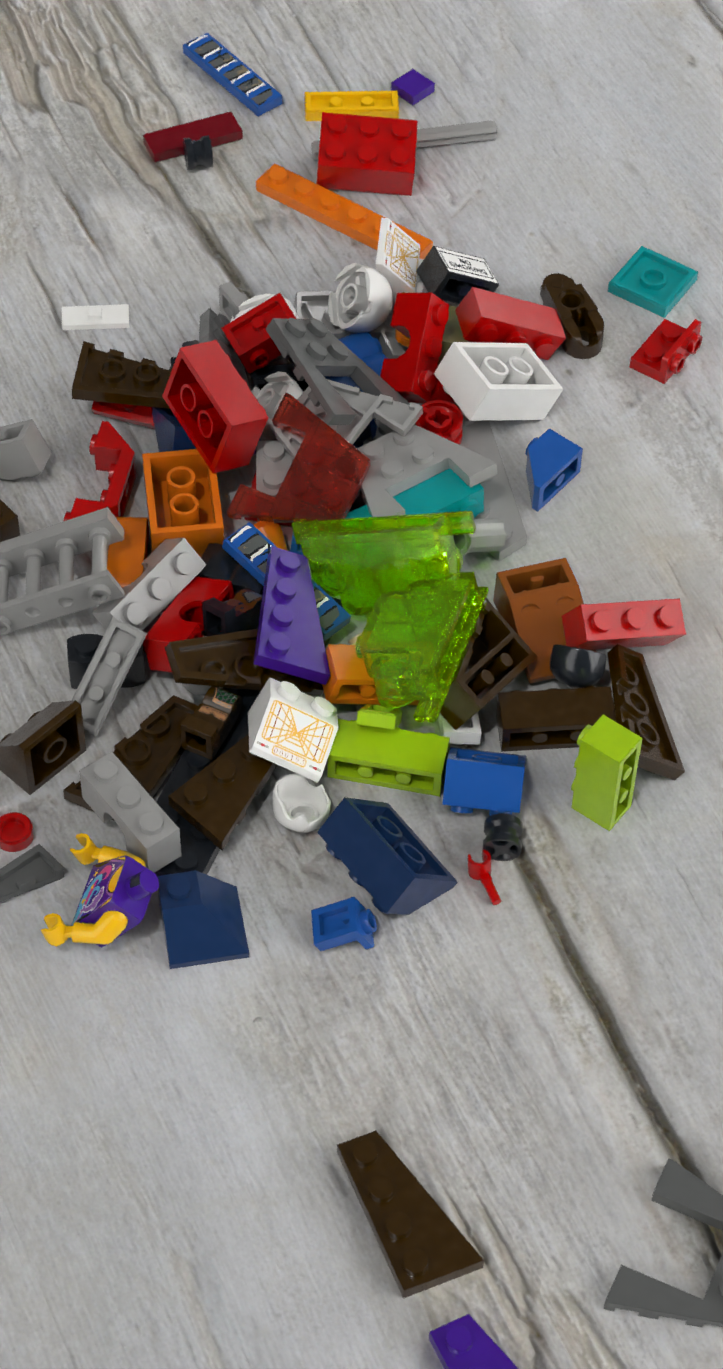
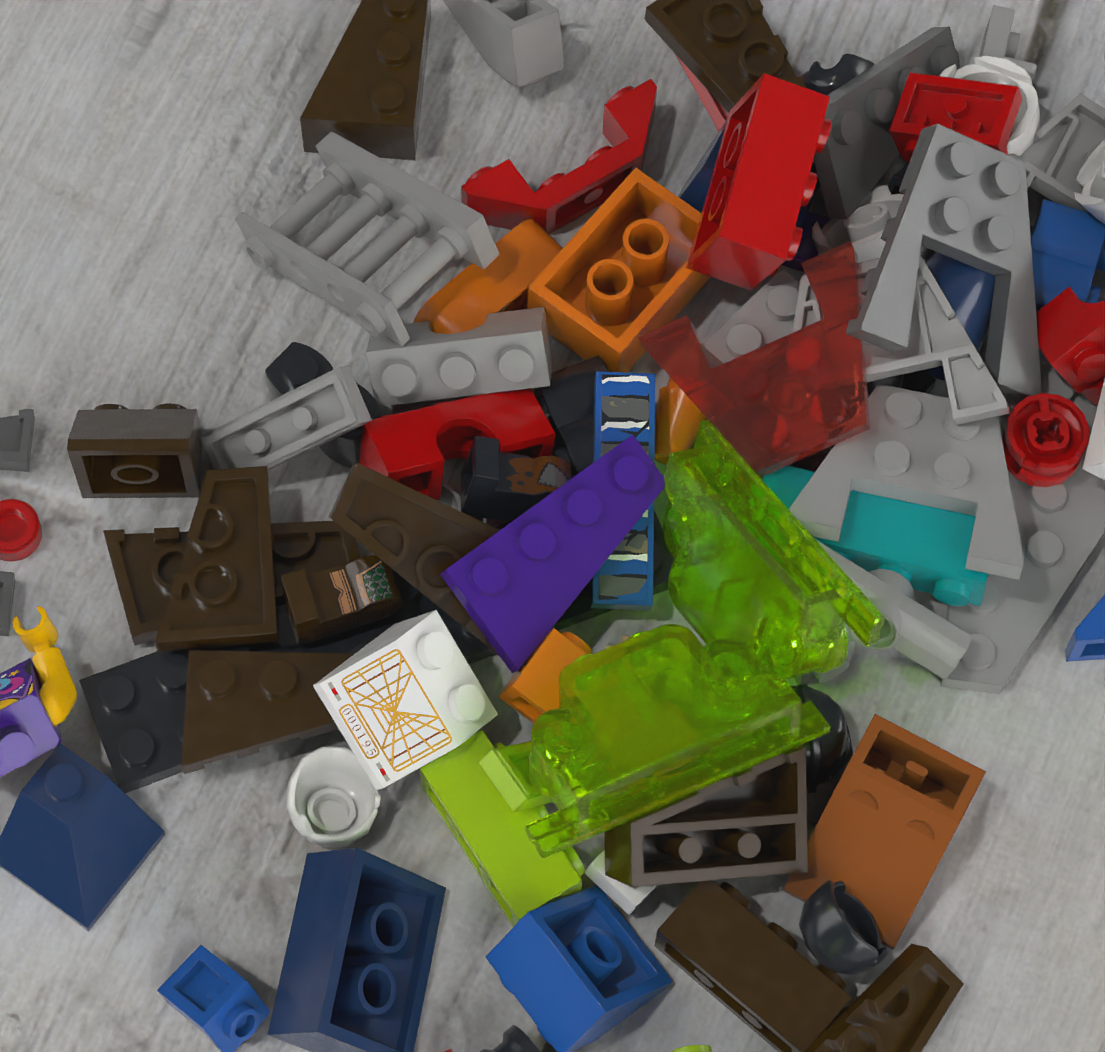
camera: 45 degrees right, 15 degrees up
(119, 796) = (110, 653): light grey arch -> none
(145, 748) = (227, 568): none -> dark brown wing
(624, 624) = (961, 931): brick -> none

